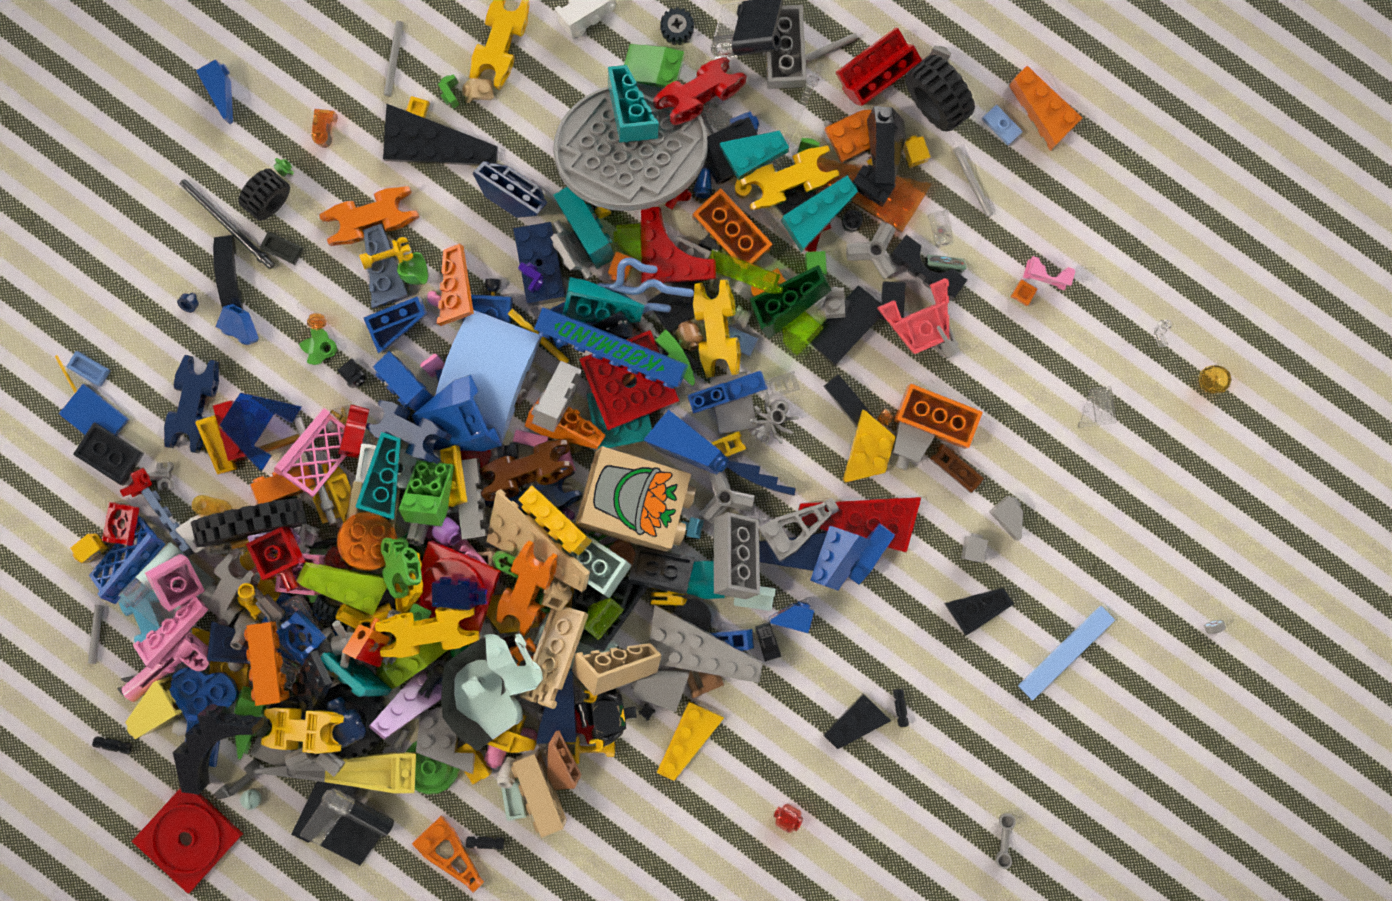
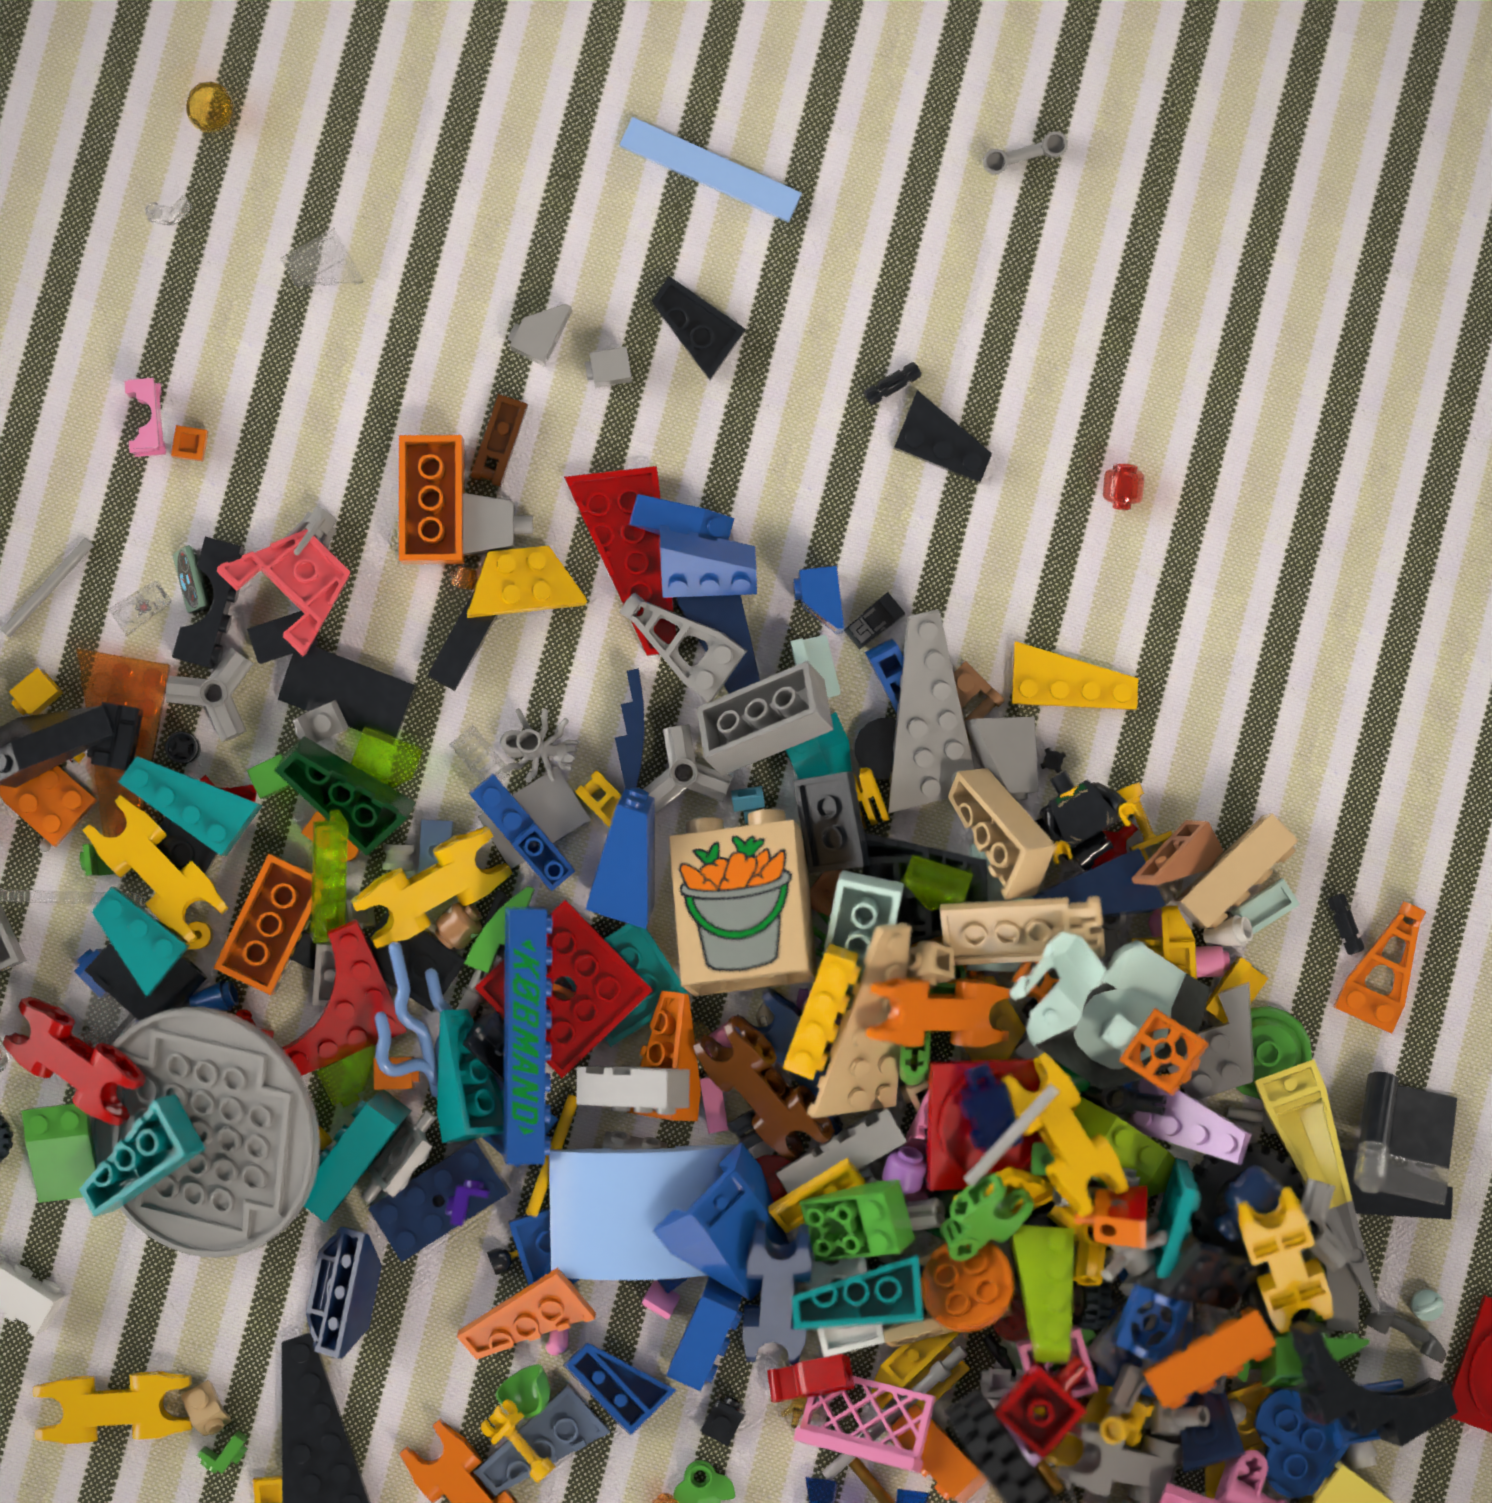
camera: 115 degrees left, 0 degrees up
(431, 706) = (1144, 1037): none -> orange piece
(438, 601) = (1011, 1135): none -> light grey bar

